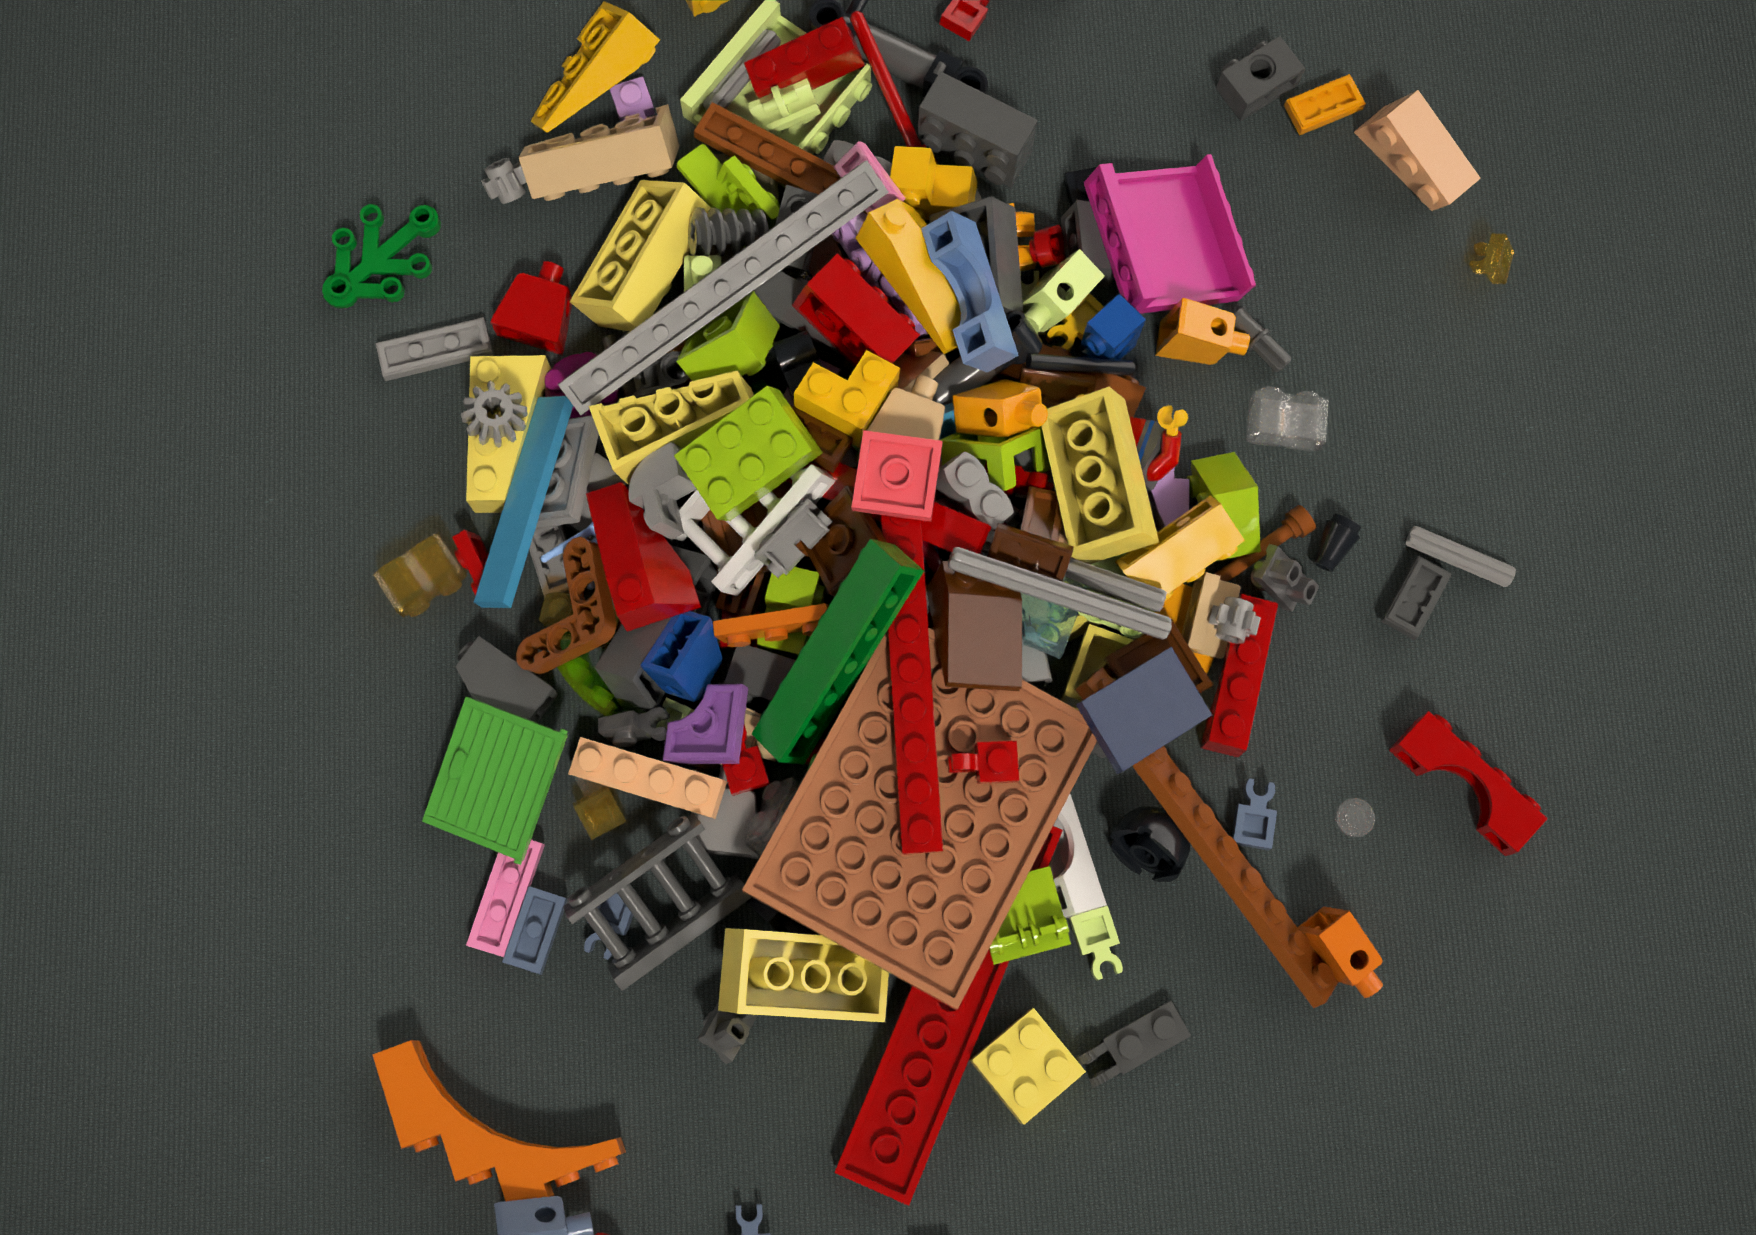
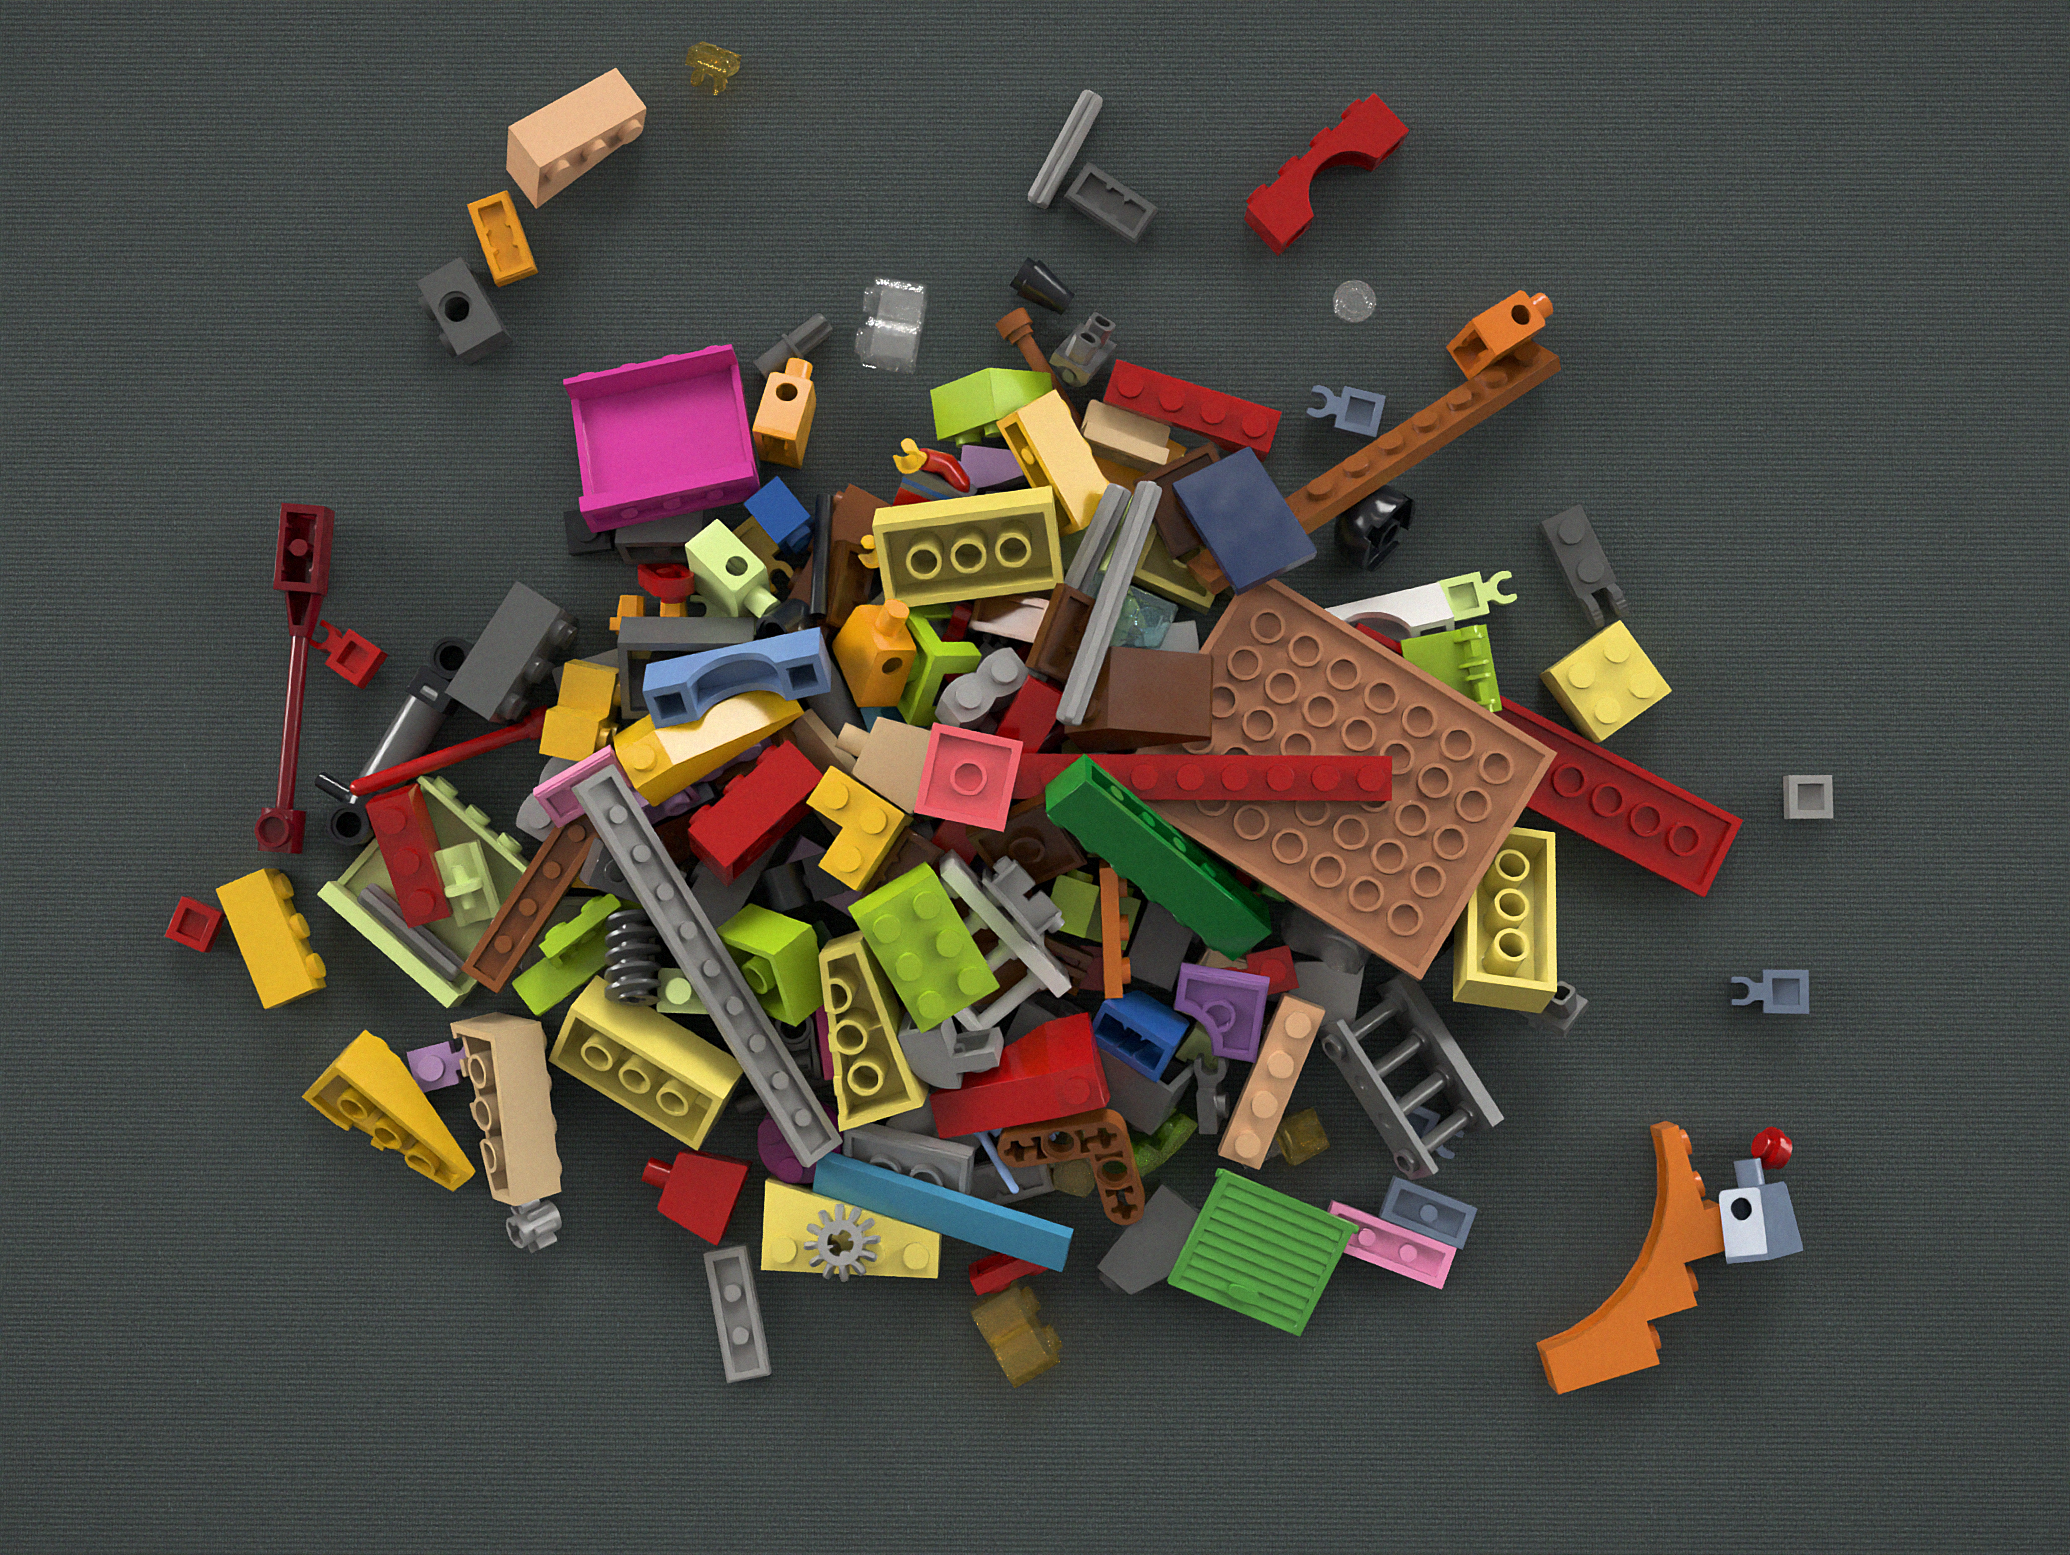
camera: 75 degrees left, 10 degrees up
(378, 259) = (621, 1380): green plant -> none
(992, 762) = (1293, 694): red plate -> none
(1234, 620) = (1140, 410): light grey gear -> none

